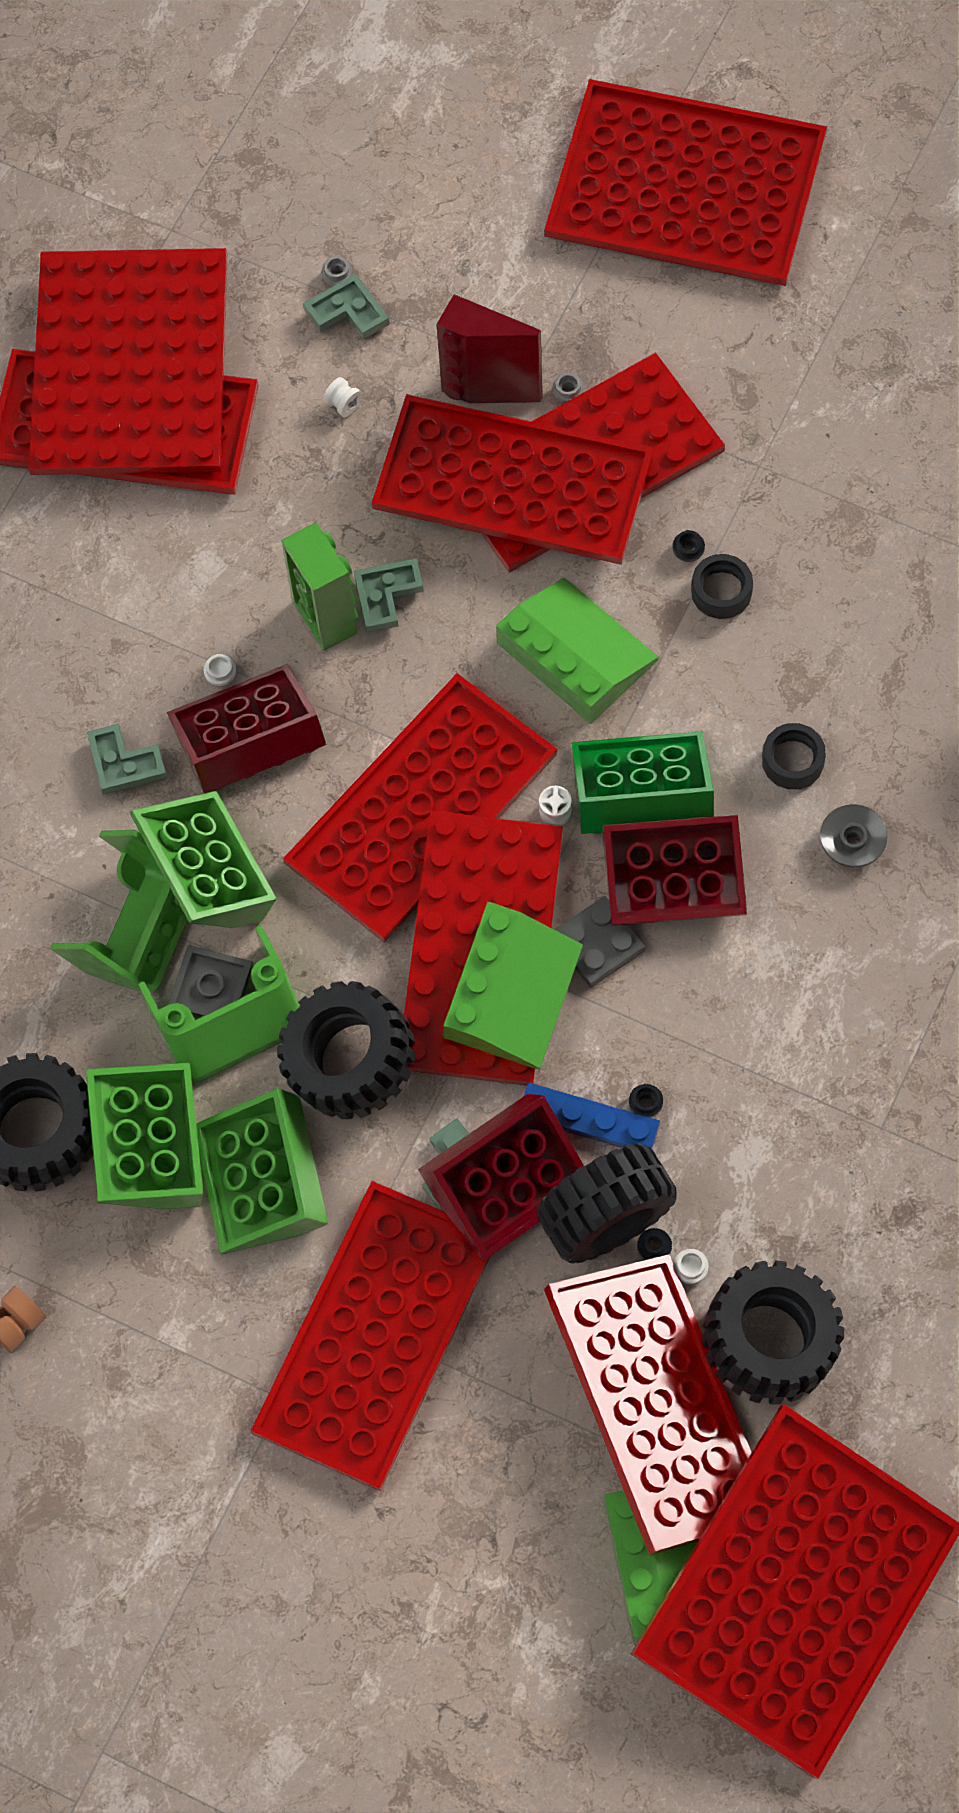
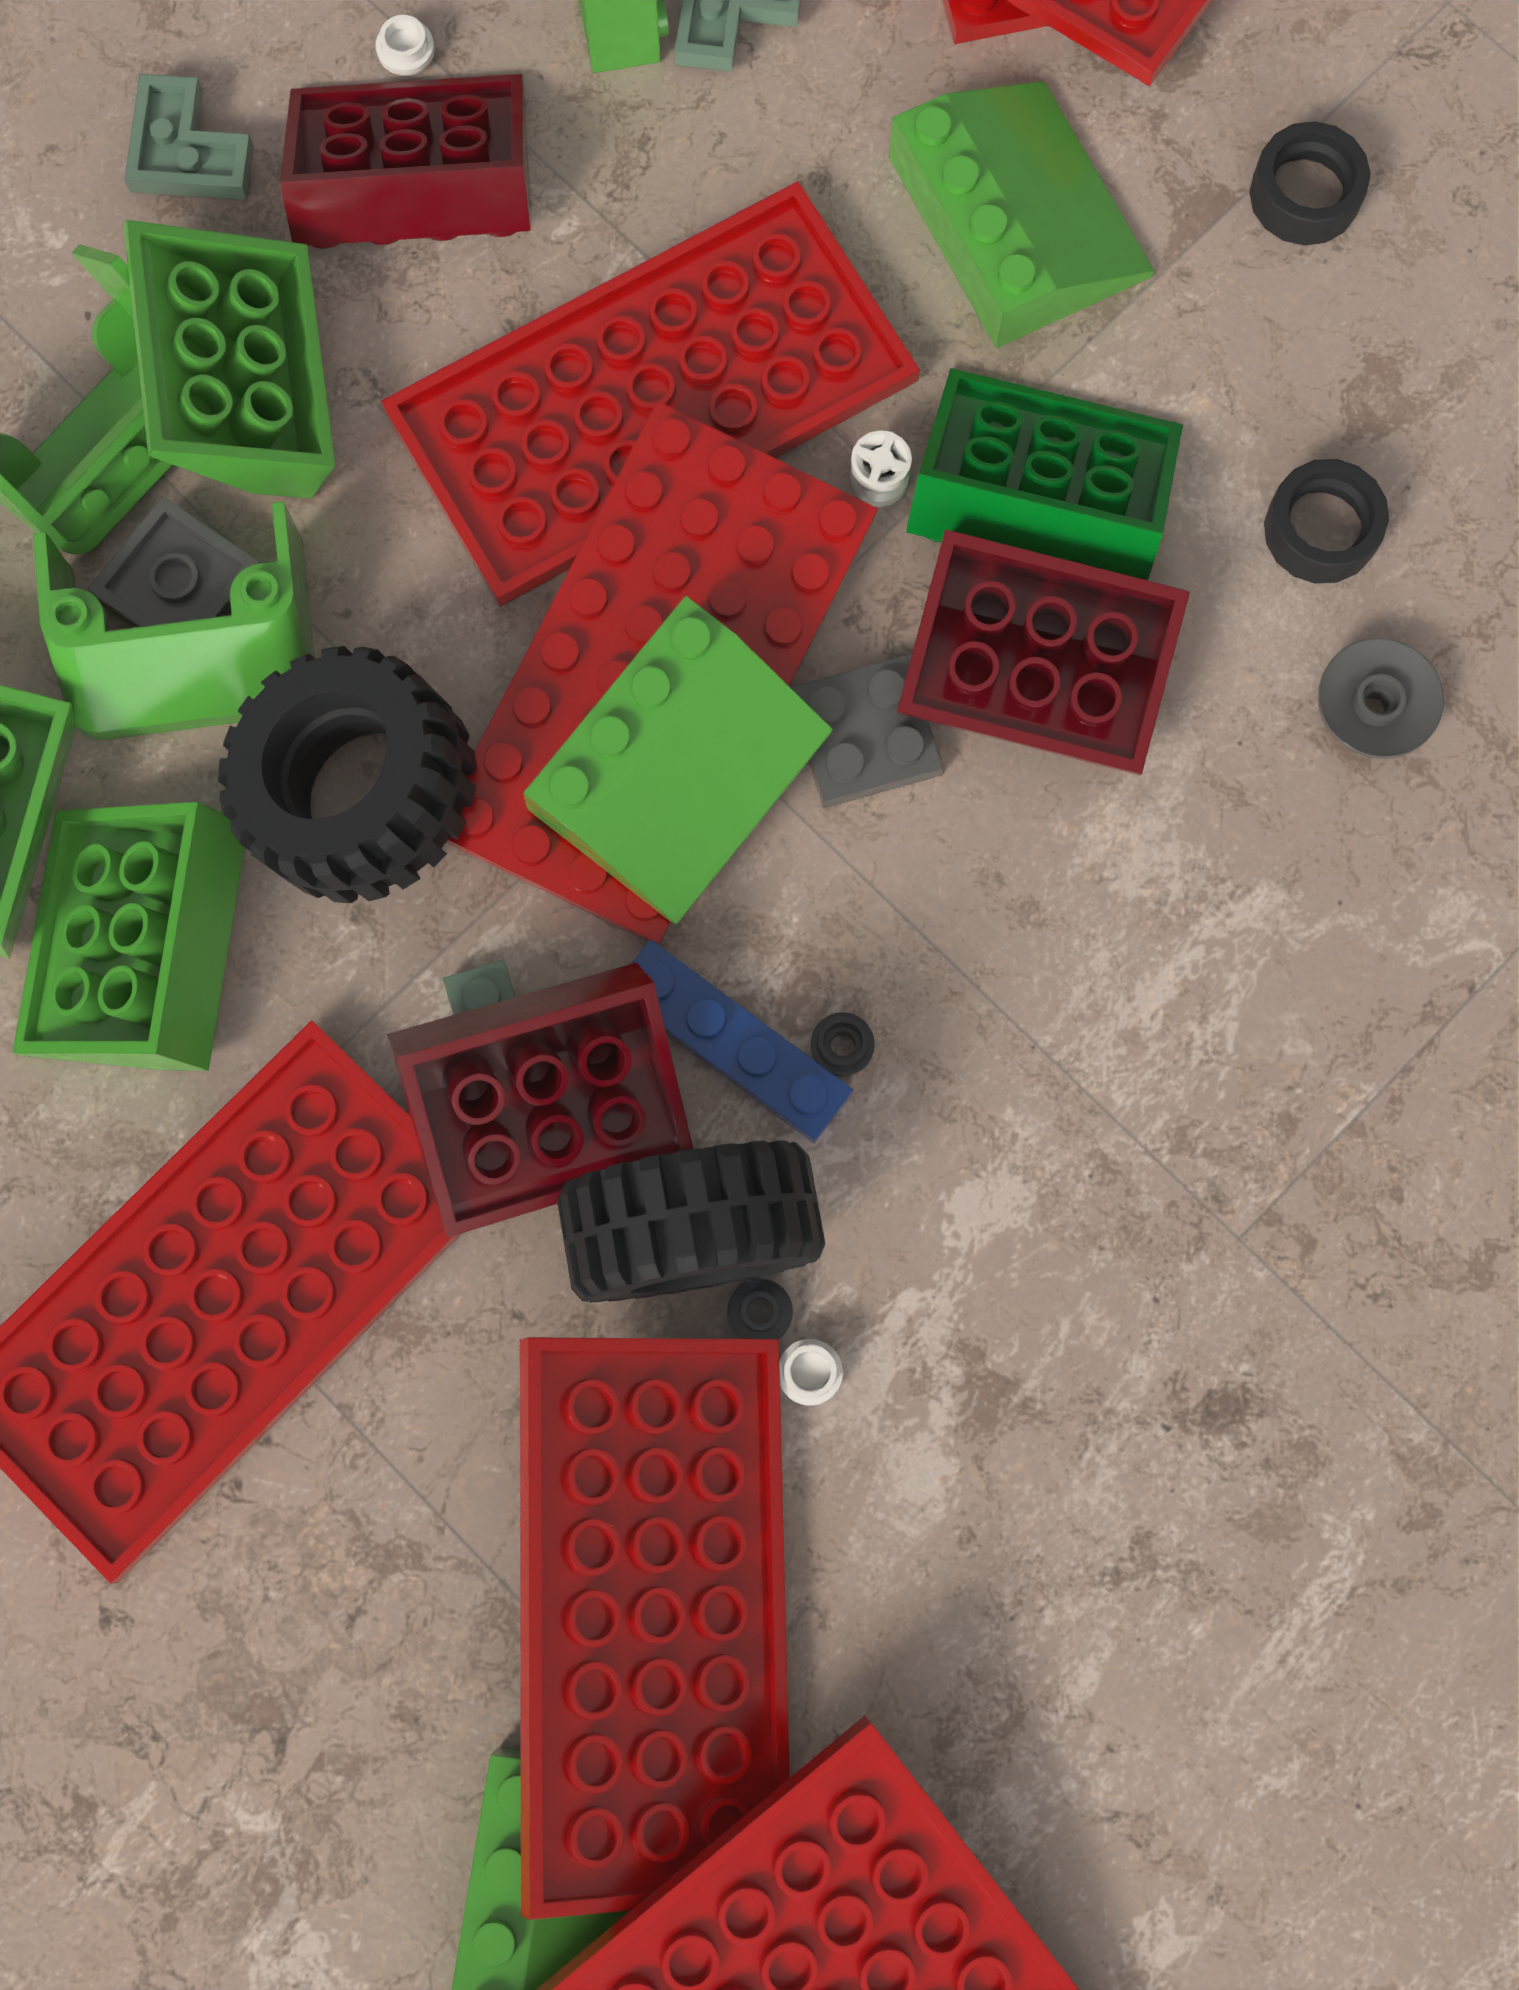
camera: 15 degrees right, 10 degrees up
(691, 538) = (1281, 83): black plate -> none
(795, 1295) = (992, 1580): black tyre -> none

